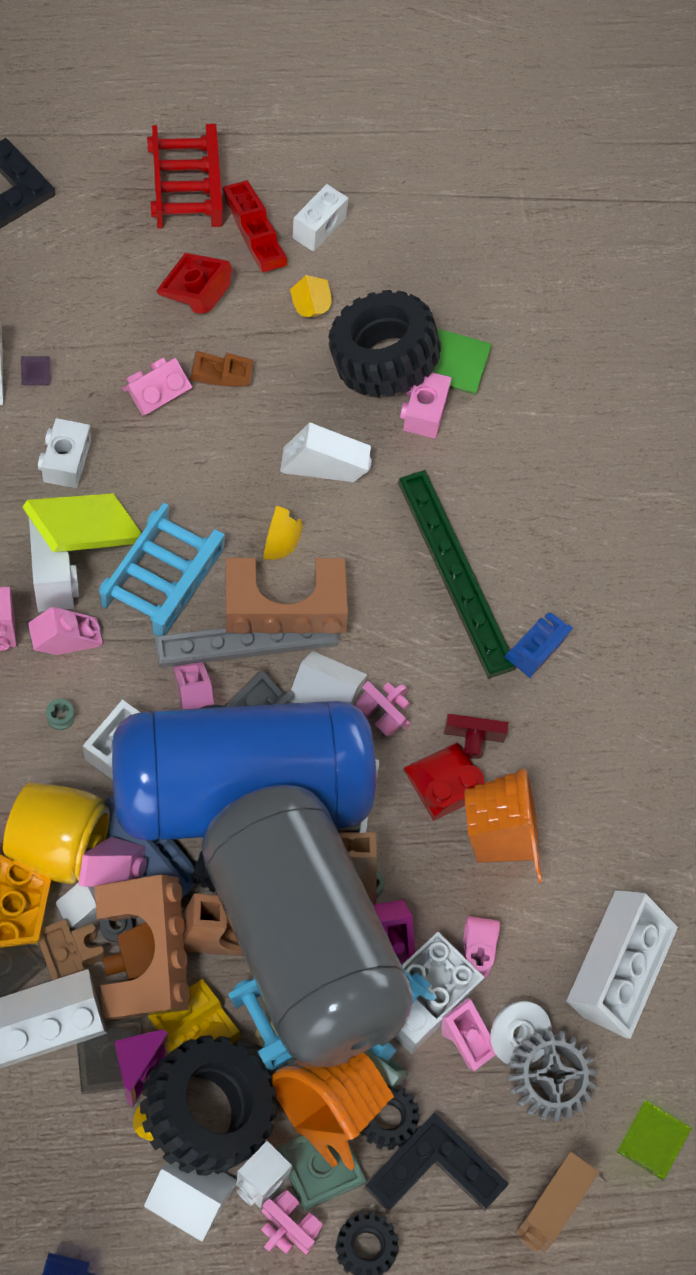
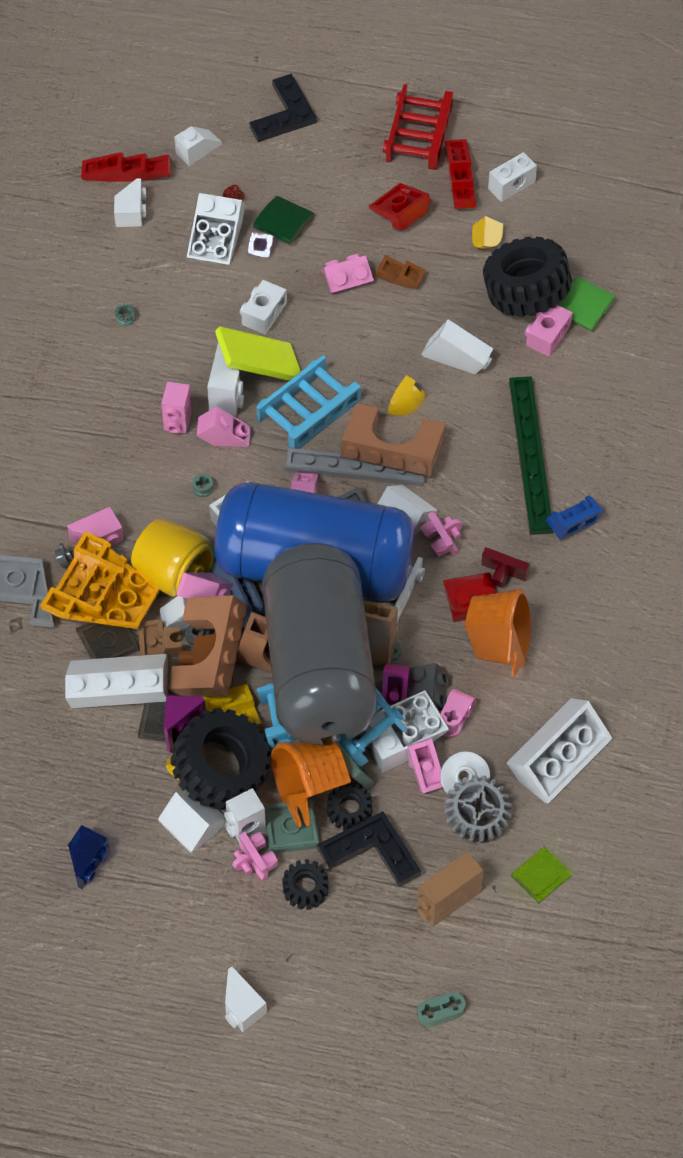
camera: 25 degrees right, 5 degrees down
(54, 331) = (283, 219): none -> dark green slope
(434, 913) = (433, 680): none -> dark grey bracket

